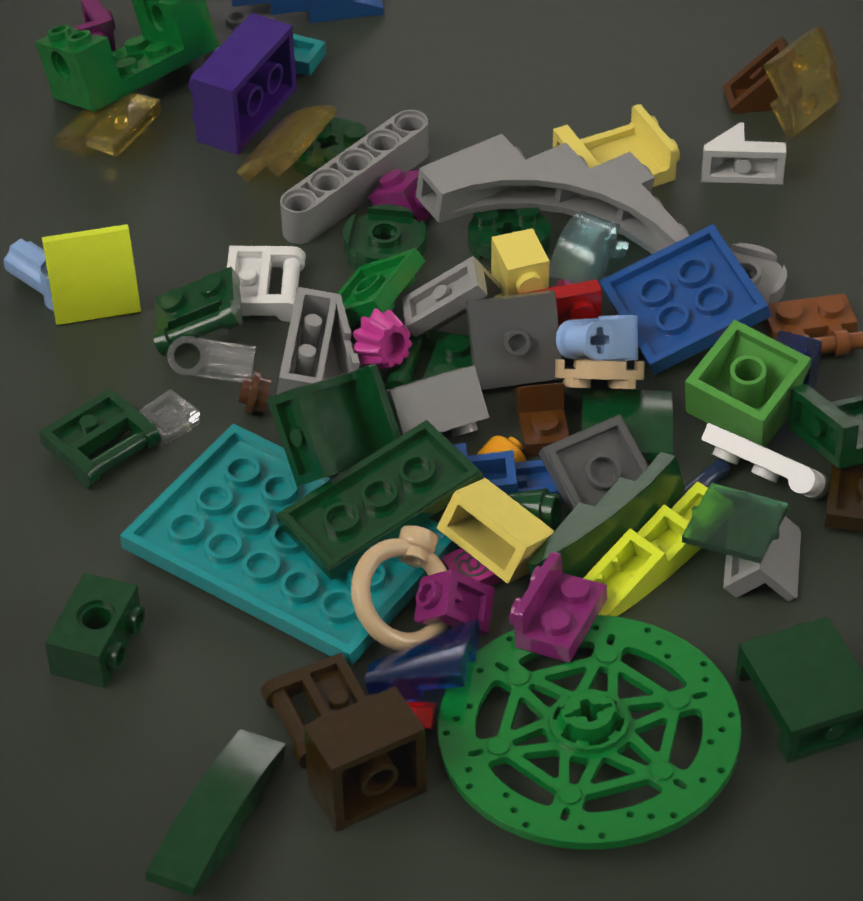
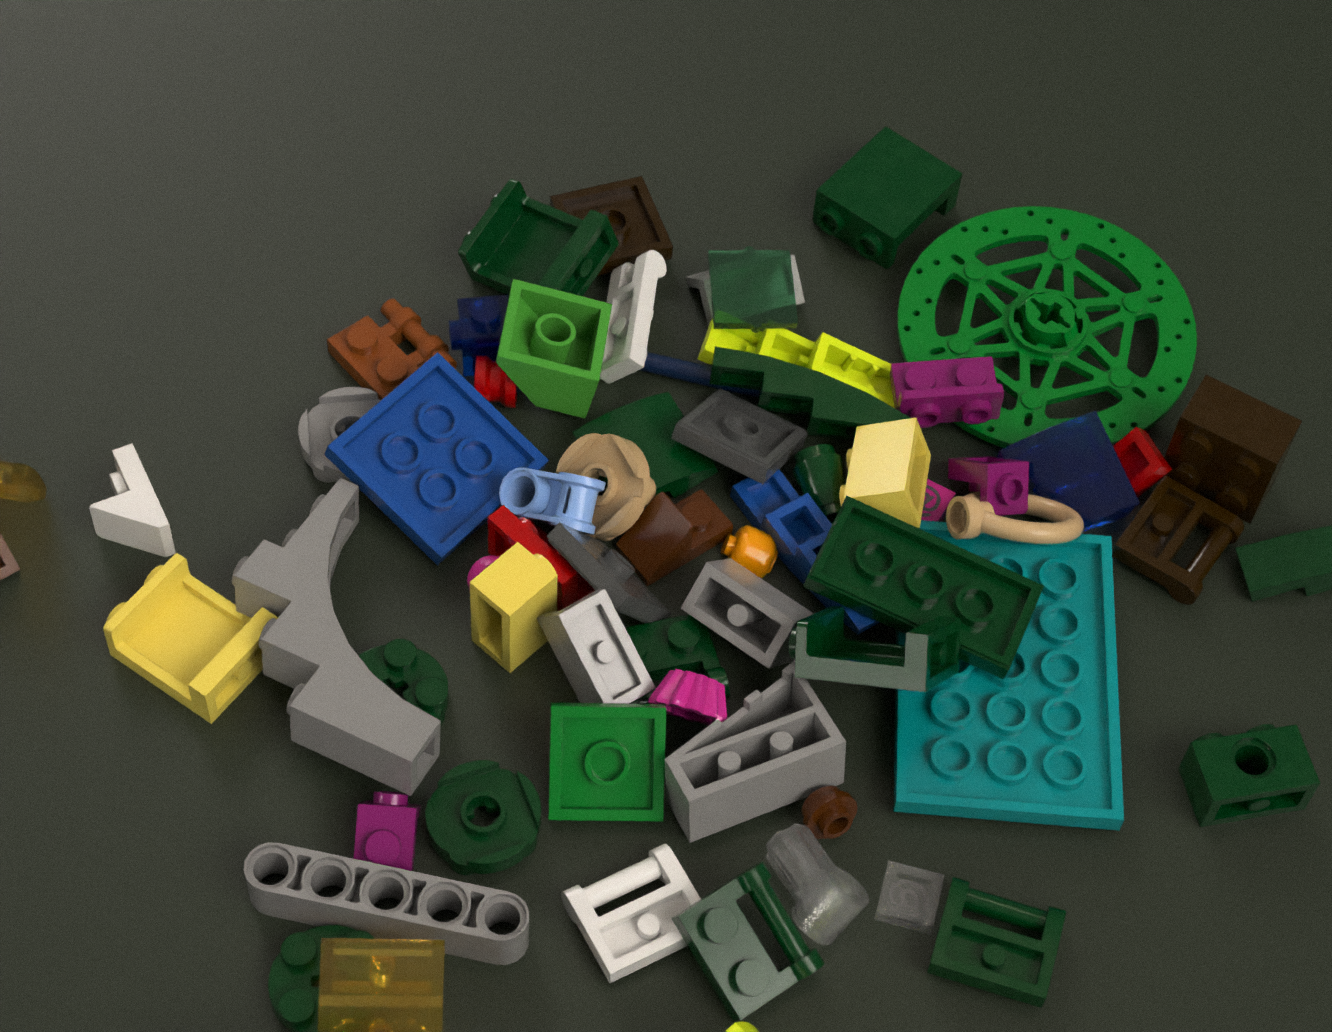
camera: 125 degrees left, 10 degrees up
(586, 248) = (408, 573): clear light blue brick -> none

